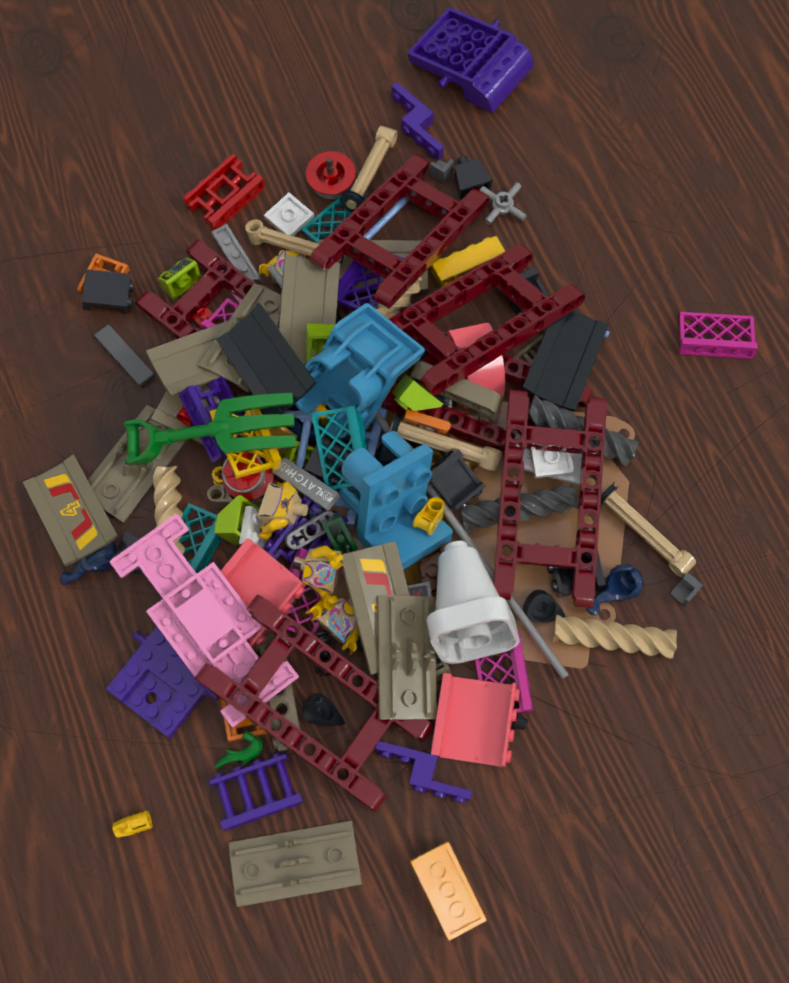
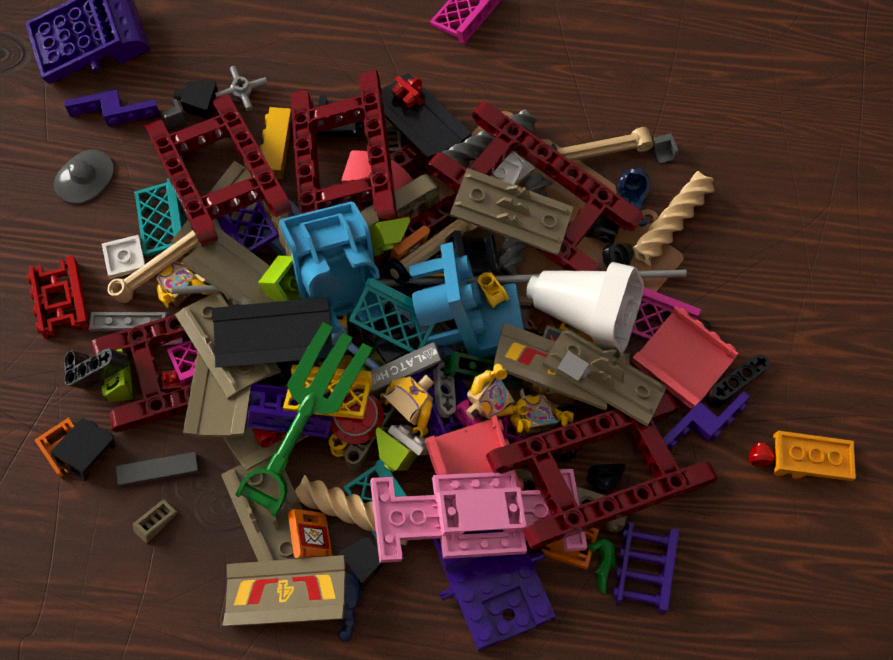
camera: 60 degrees left, 5 degrees down
(72, 384) = (152, 531): none -> dark tan slope
(124, 502) = (309, 538): none -> orange container
(170, 251) = (85, 371): none -> black beam
(294, 863) = (725, 570): dark tan hinge -> none
(330, 174) = (113, 199): red piece -> none
(344, 137) = (84, 177): none -> dark grey hat
(384, 139) = (153, 193): tan piece -> none
(386, 622) = (574, 366): none -> light grey brick
(421, 839) = (761, 455): none -> red cone
(487, 778) = (717, 396): none -> black beam
(511, 486) = (511, 211): none -> dark tan hinge
(587, 334) = (411, 90): none -> red hips

